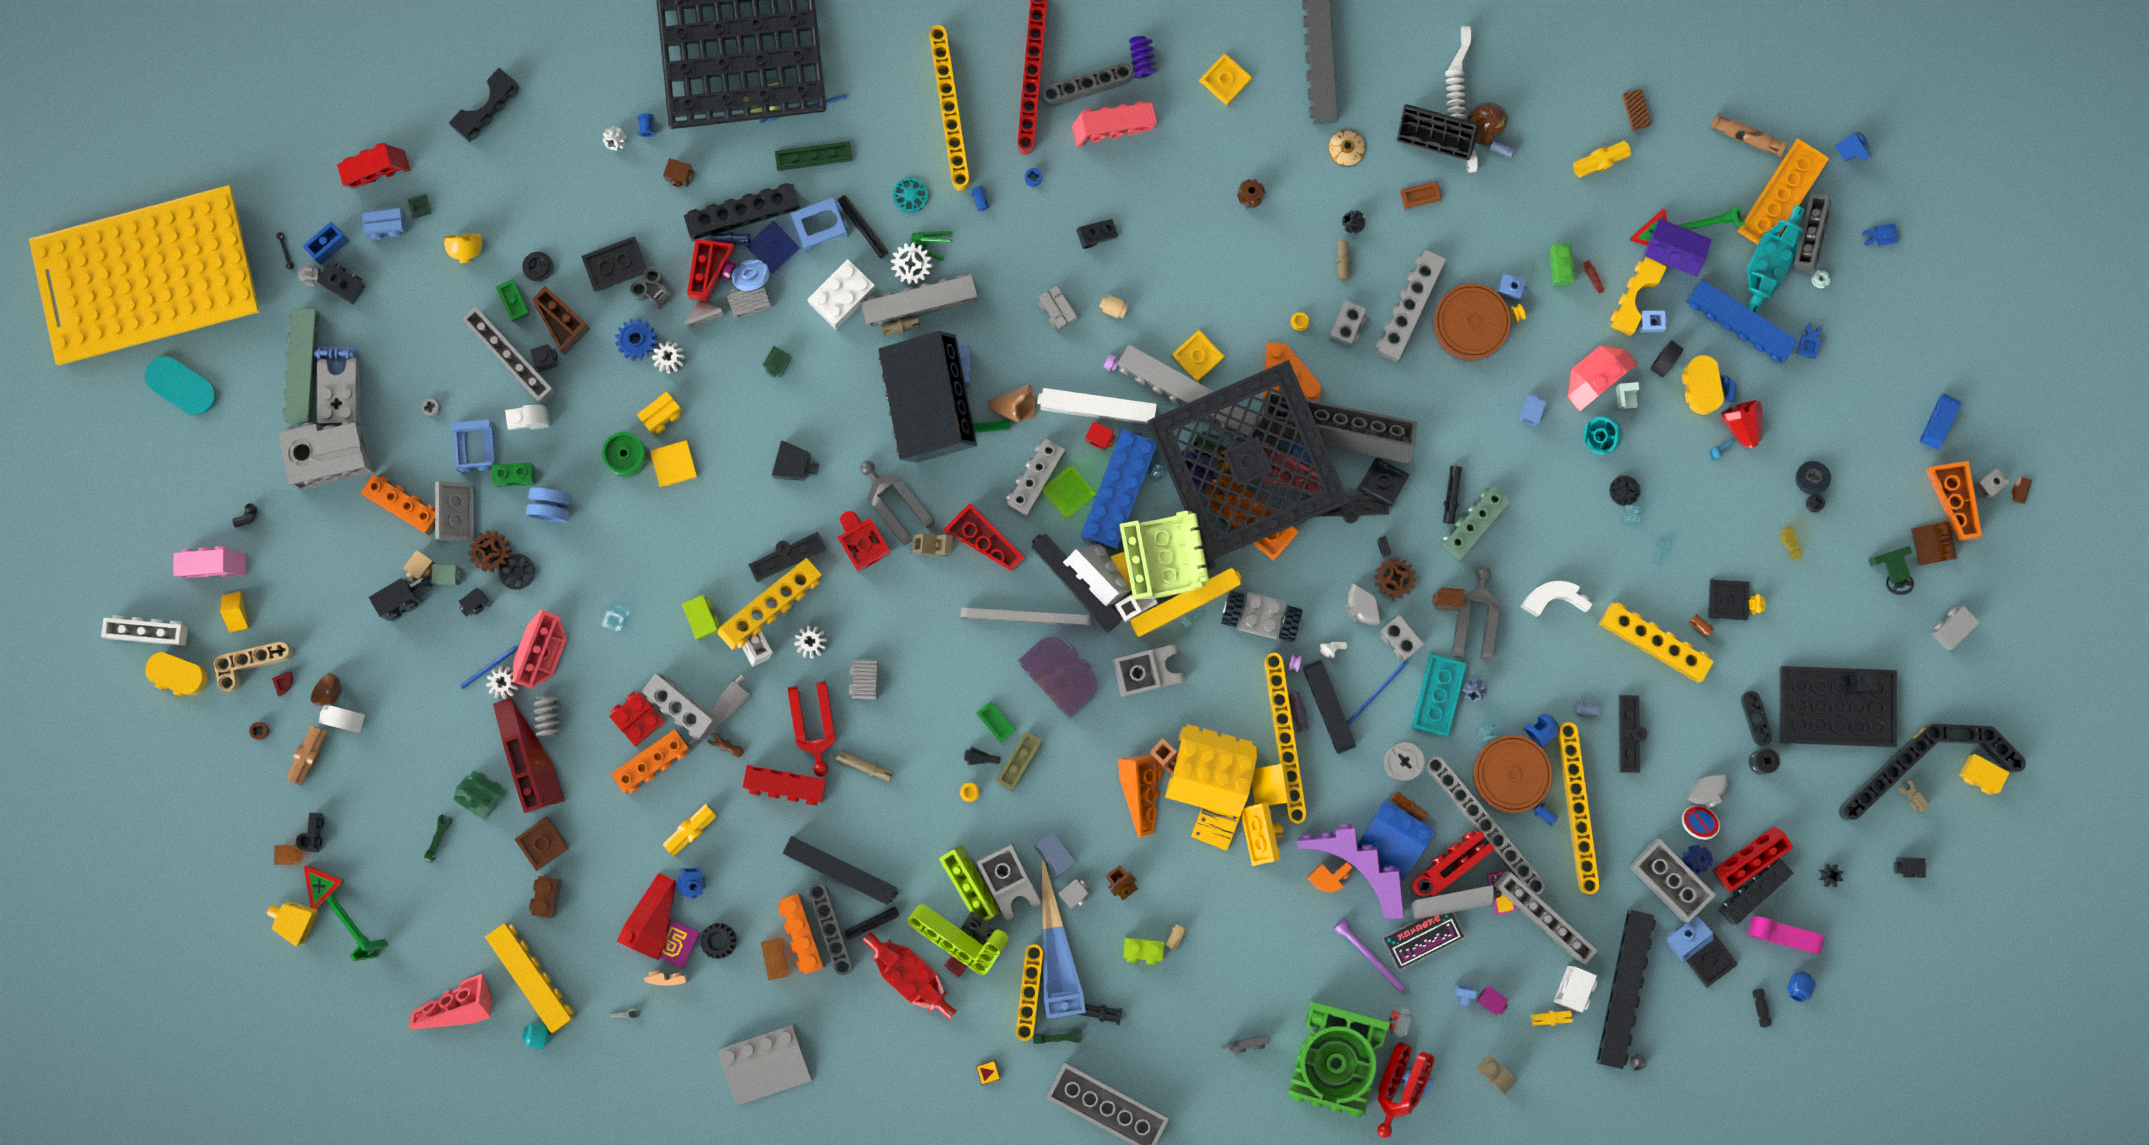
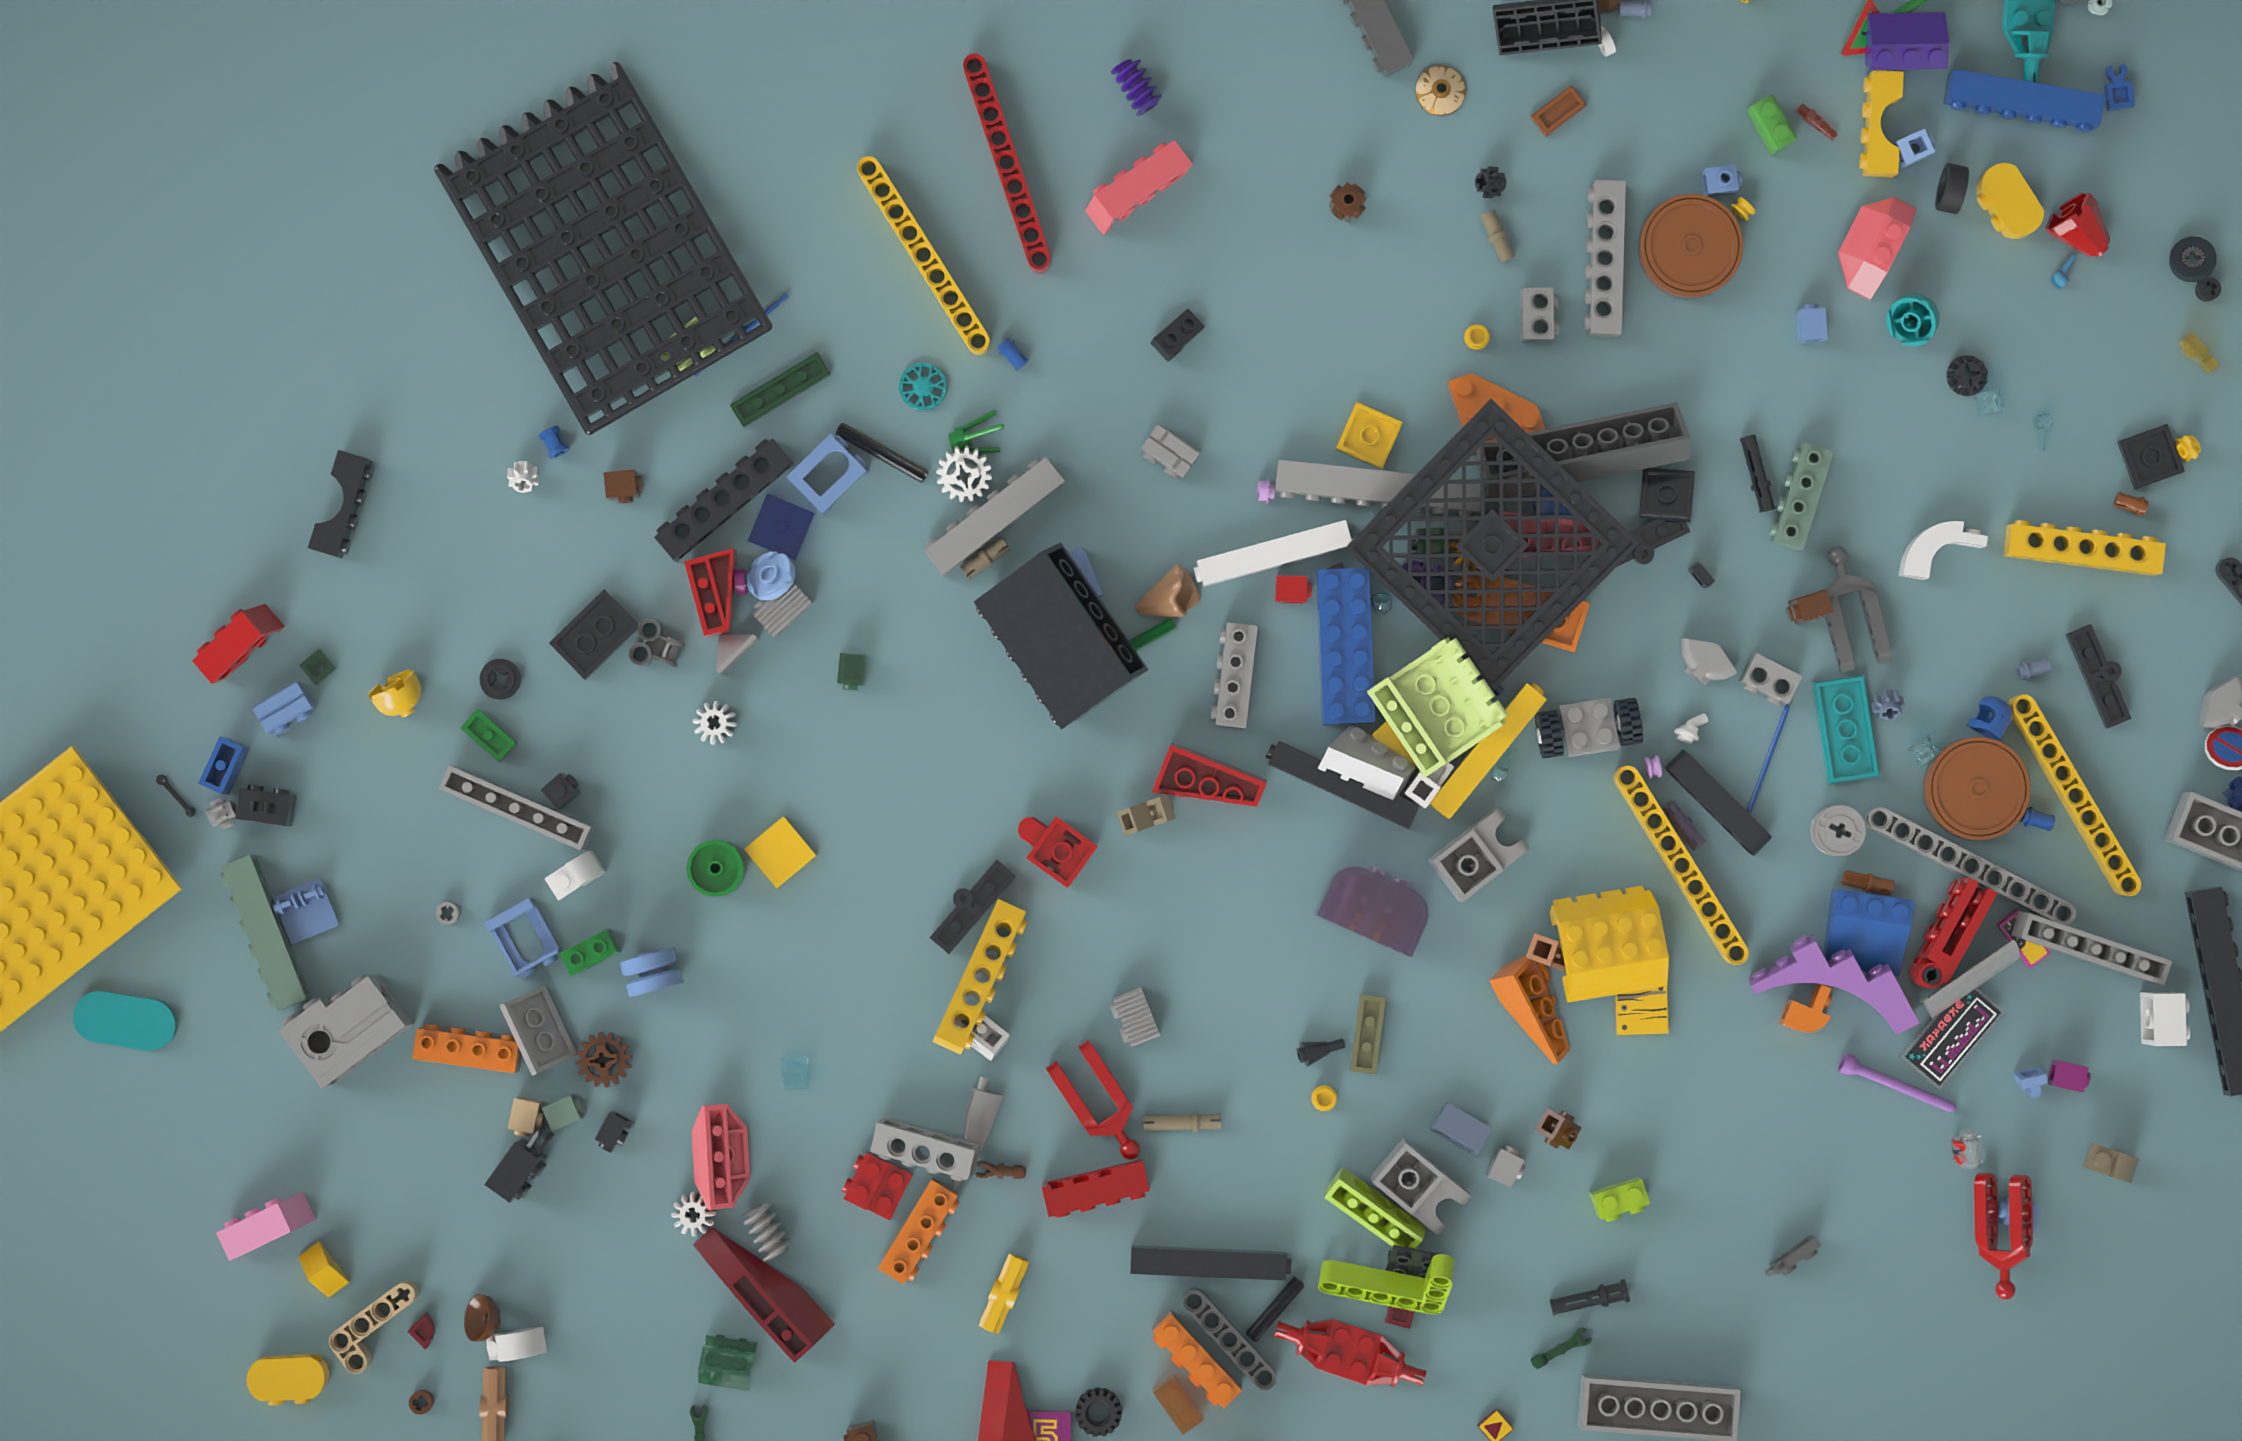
camera: 20 degrees left, 5 degrees up
(142, 631) = (226, 1343): white brick -> none
(248, 517) = (285, 1146): black arm -> none
(336, 389) = (328, 938): light grey brick -> none
(490, 666) = (668, 1199): blue axle -> none
(517, 572) = (649, 1069): black wheel -> none
(541, 843) = (830, 1388): reddish brown plate -> none
(560, 320) = (560, 735): reddish brown wedge -> none
(629, 332) = (651, 714): blue gear -> none
(660, 413) = (735, 797): yellow brick -> none
(691, 882) = (1034, 1356): blue brick -> none
(700, 617) = (900, 1027): lime brick -> none
(731, 238) = (726, 540): dark blue pin -> none
(793, 463) = (928, 787): black torso -> none
(805, 647) = (1050, 991): white gear -> none
(841, 294) = (894, 550): white brick -> none
(879, 486) = (1048, 768): dark grey piece -> none
(995, 722) = (1318, 998): green tile -> none
(1025, 1001) = (1510, 1320): yellow beam -> none
(1026, 617) = (1299, 853): light grey beam -> none
(1029, 181) = (1064, 305): blue bush -> none
(1060, 979) = (1538, 1282): medium blue plate -> none
(1068, 492) = (1285, 677): clear neon green brick -> none
(1094, 78) = (1086, 139): dark grey beam -> none
(1114, 306) = (1238, 418): tan brick -> none
(1175, 937) = (1651, 1165): tan pin -> none
(1225, 79) = (1252, 68): yellow tile -> none
(1261, 834) = (1703, 996): yellow plate -> none
(1271, 785) = (1689, 932): yellow tile -> none
(1354, 1095) = (1949, 1265): bright green brick -> none
(1392, 569) = (1738, 617): reddish brown gear -> none
(1551, 1018) = (2148, 1065): yellow pin -> none
(1627, 395) = (1920, 255): light aqua panel -> none
(1730, 388) = (2042, 188): blue arm -> none

